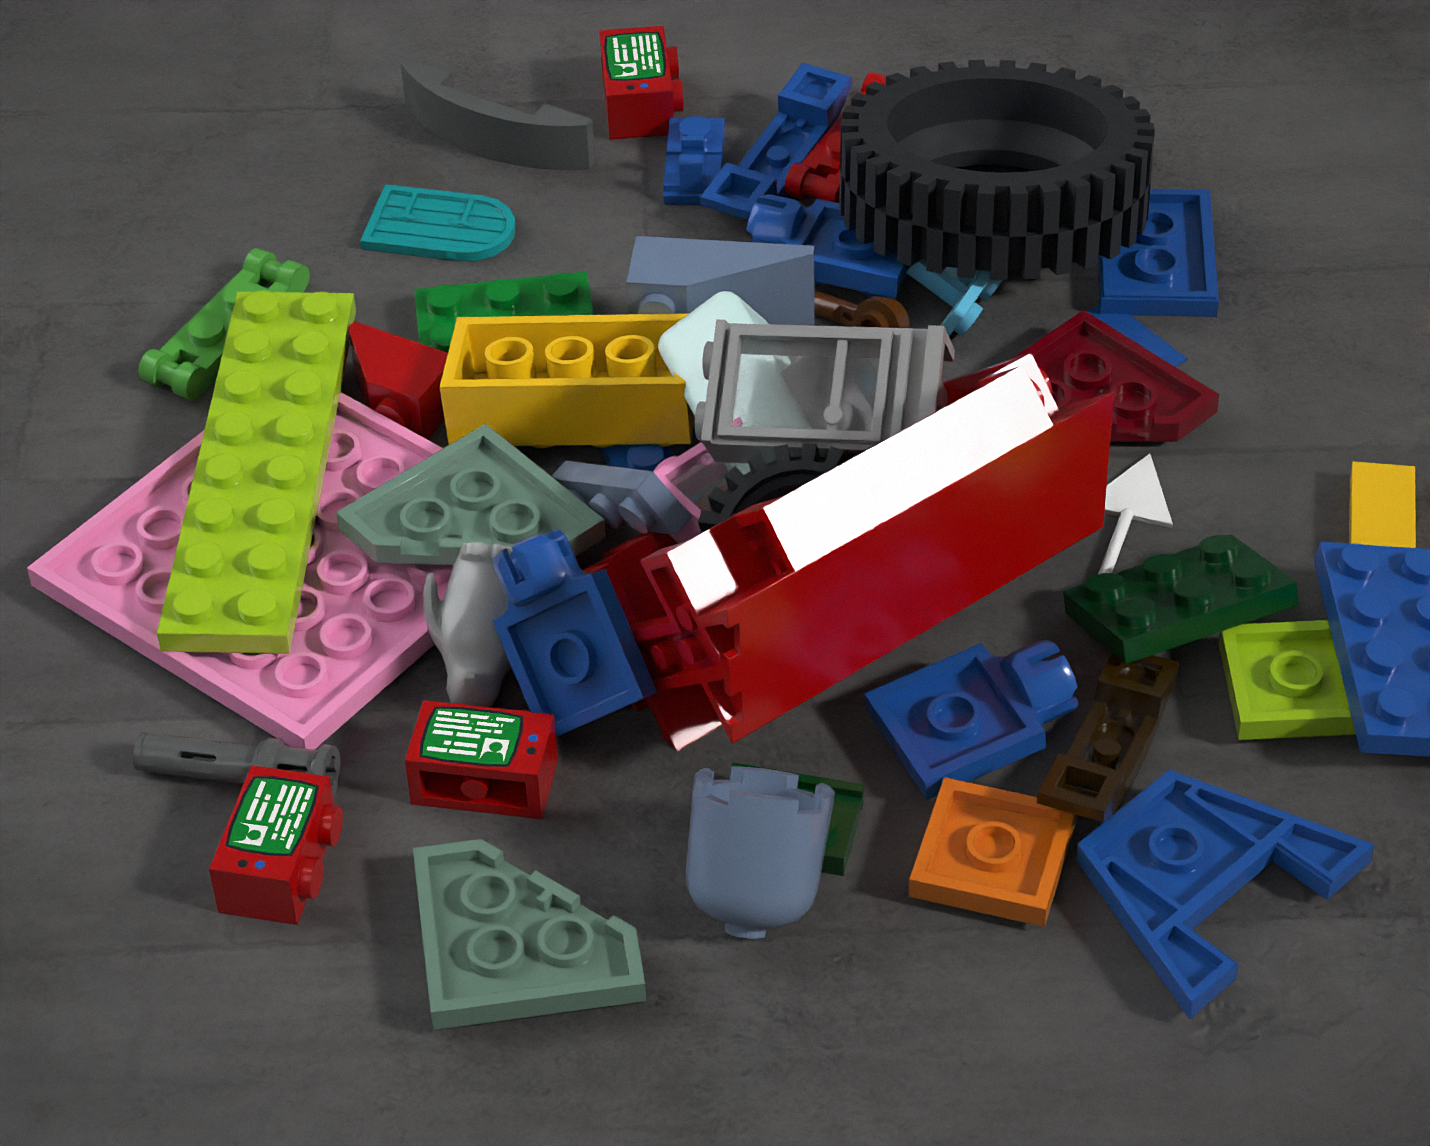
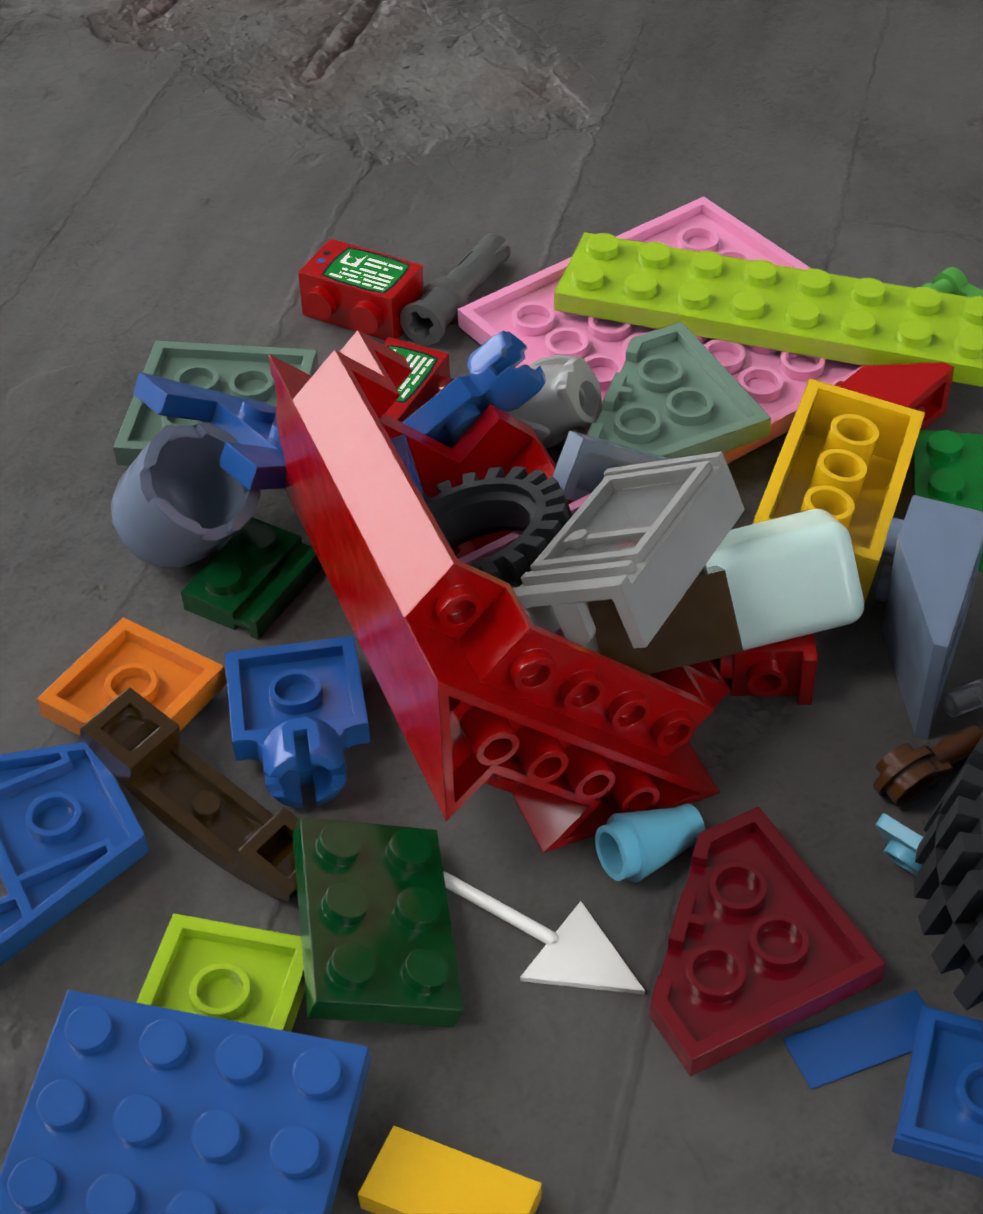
camera: 105 degrees right, 0 degrees up
(618, 796) = (257, 459): none -> blue wing

